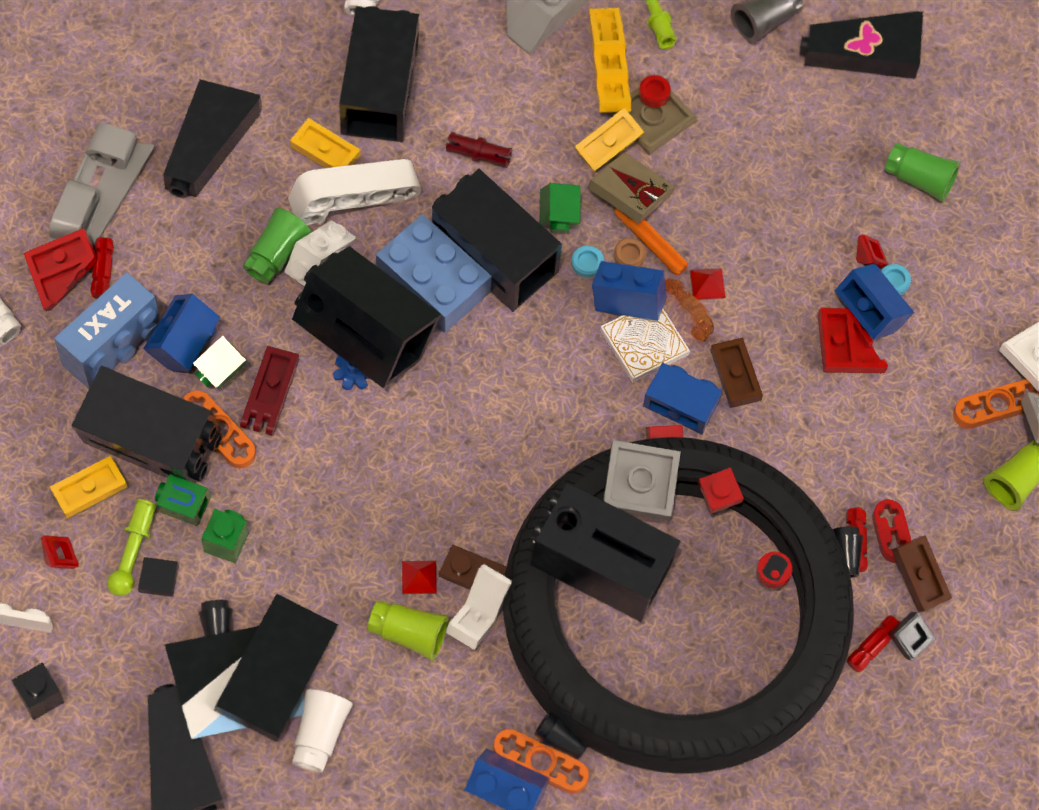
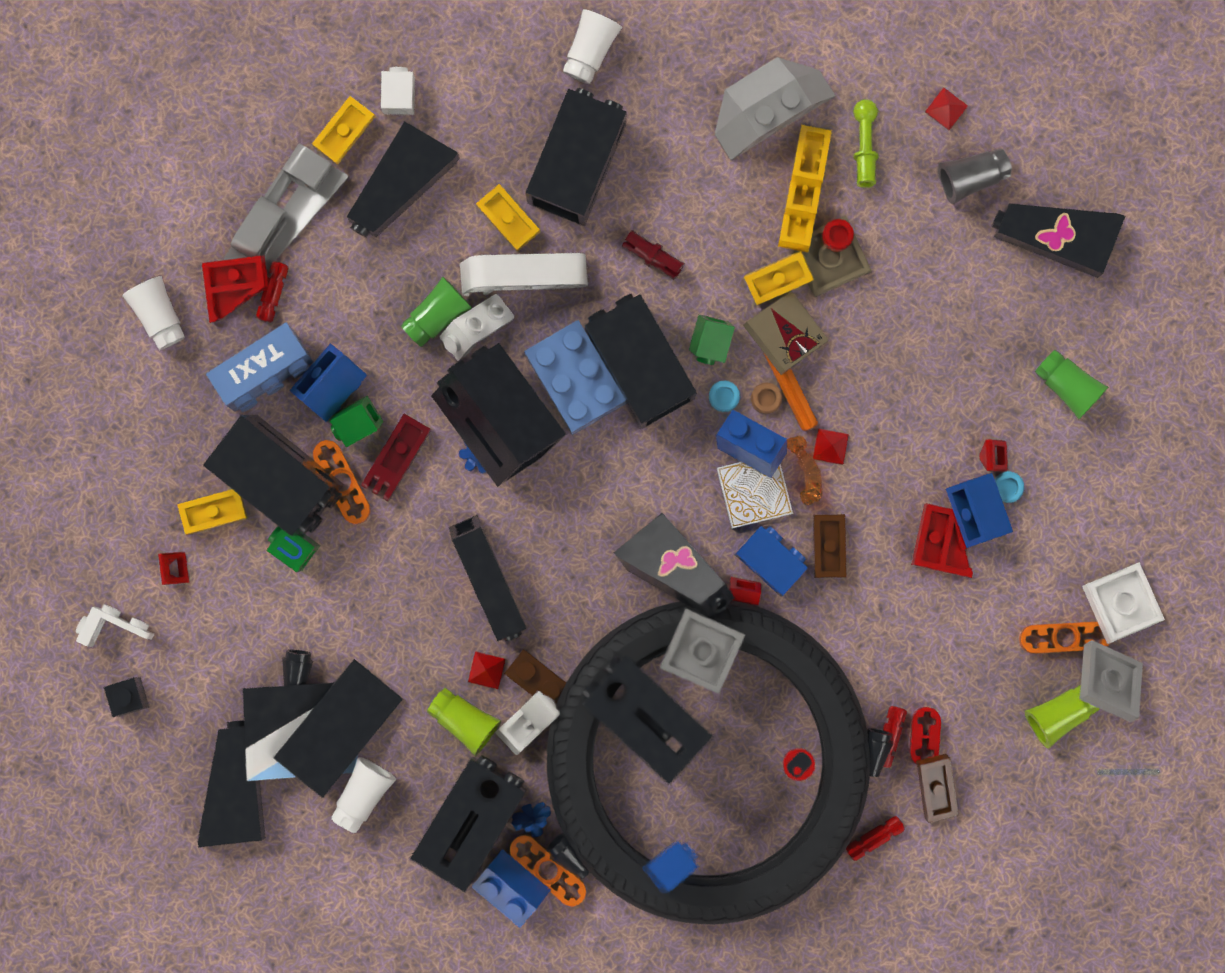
camera: 20 degrees right, 20 degrees up
(121, 581) = (223, 606): lime pin -> none
(140, 105) = (343, 130): none -> yellow plate
(158, 577) = (255, 612): black tile -> none
(185, 60) = (397, 91): none -> white brick
(225, 535) = (322, 591): green brick -> none
(396, 480) = (487, 578): none -> black slope
(444, 723) = (469, 823): none -> black brick
(510, 711) = (532, 818): none -> blue plant
(587, 417) = (672, 565): none -> black slope
(674, 693) = (671, 866): none -> blue brick
(720, 490) = (772, 676): red plate -> none
(911, 636) = (910, 841): tile -> none

